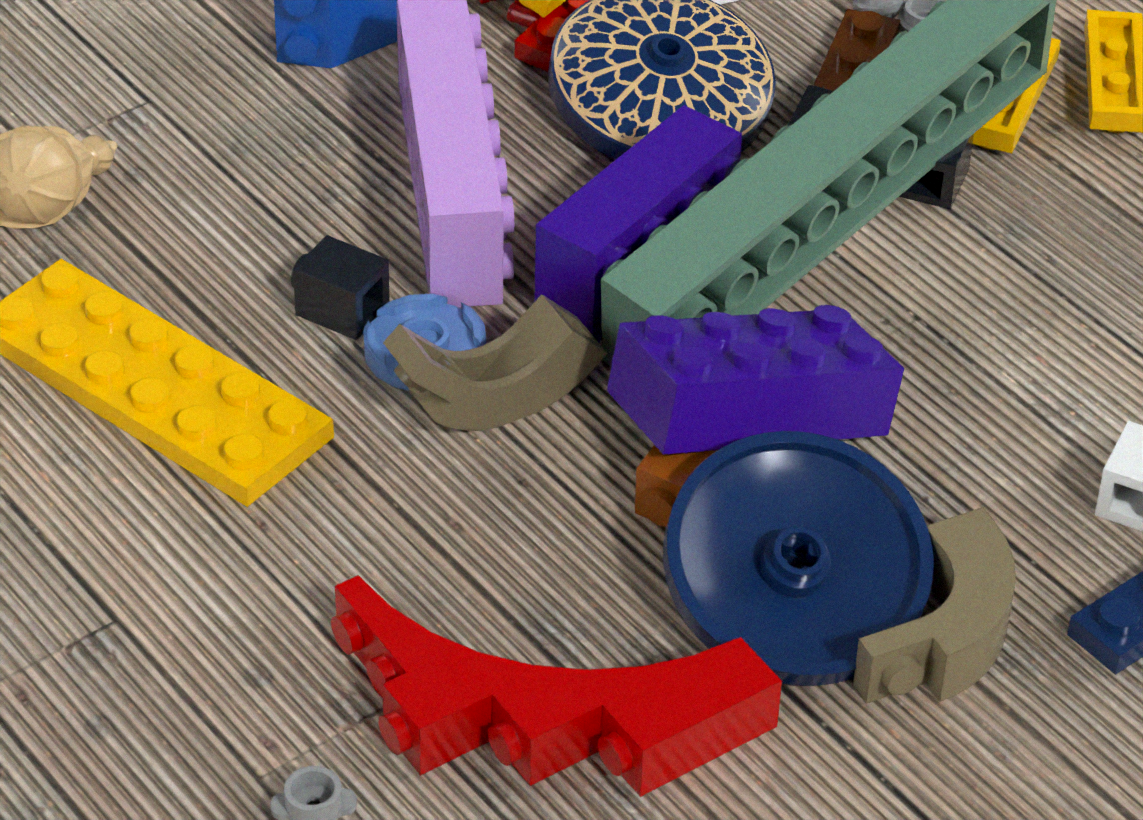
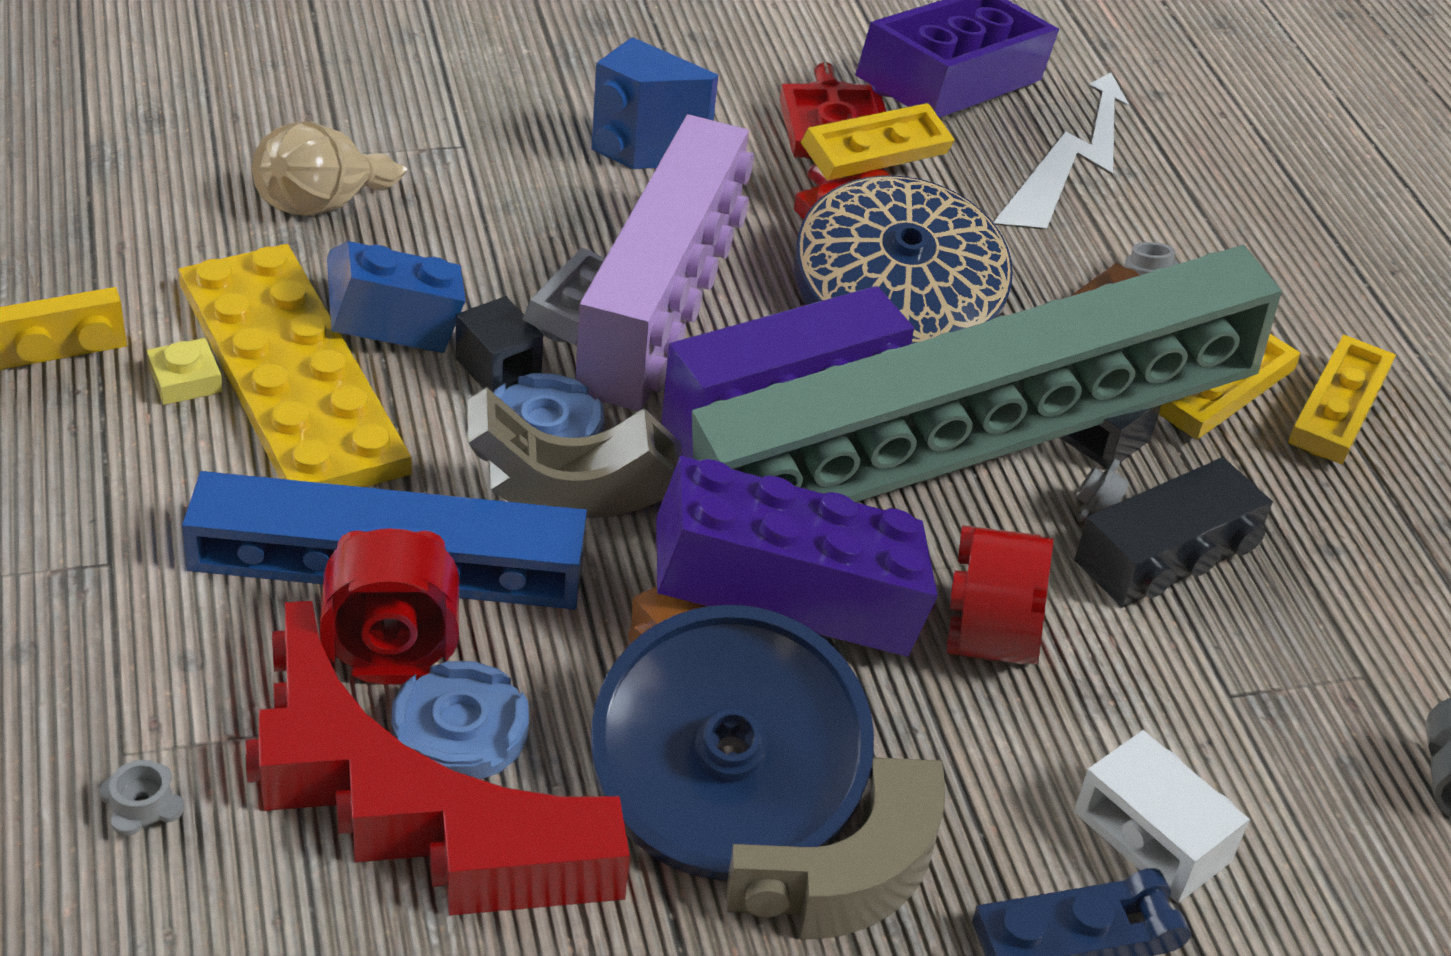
camera: 20 degrees right, 0 degrees up
(51, 418) = (184, 371): none -> light yellow plate
(213, 271) = (393, 295): none -> blue slope
(368, 502) = (294, 527): none -> blue brick
(388, 212) = (557, 303): none -> light grey plate
(428, 551) = (390, 604): none -> red brick
(542, 625) = (463, 717): none -> medium blue tile
(946, 350) = (1000, 595): none -> red brick
(963, 230) = (1100, 490): none -> light grey plate
(1045, 244) = (1172, 531): none -> black brick

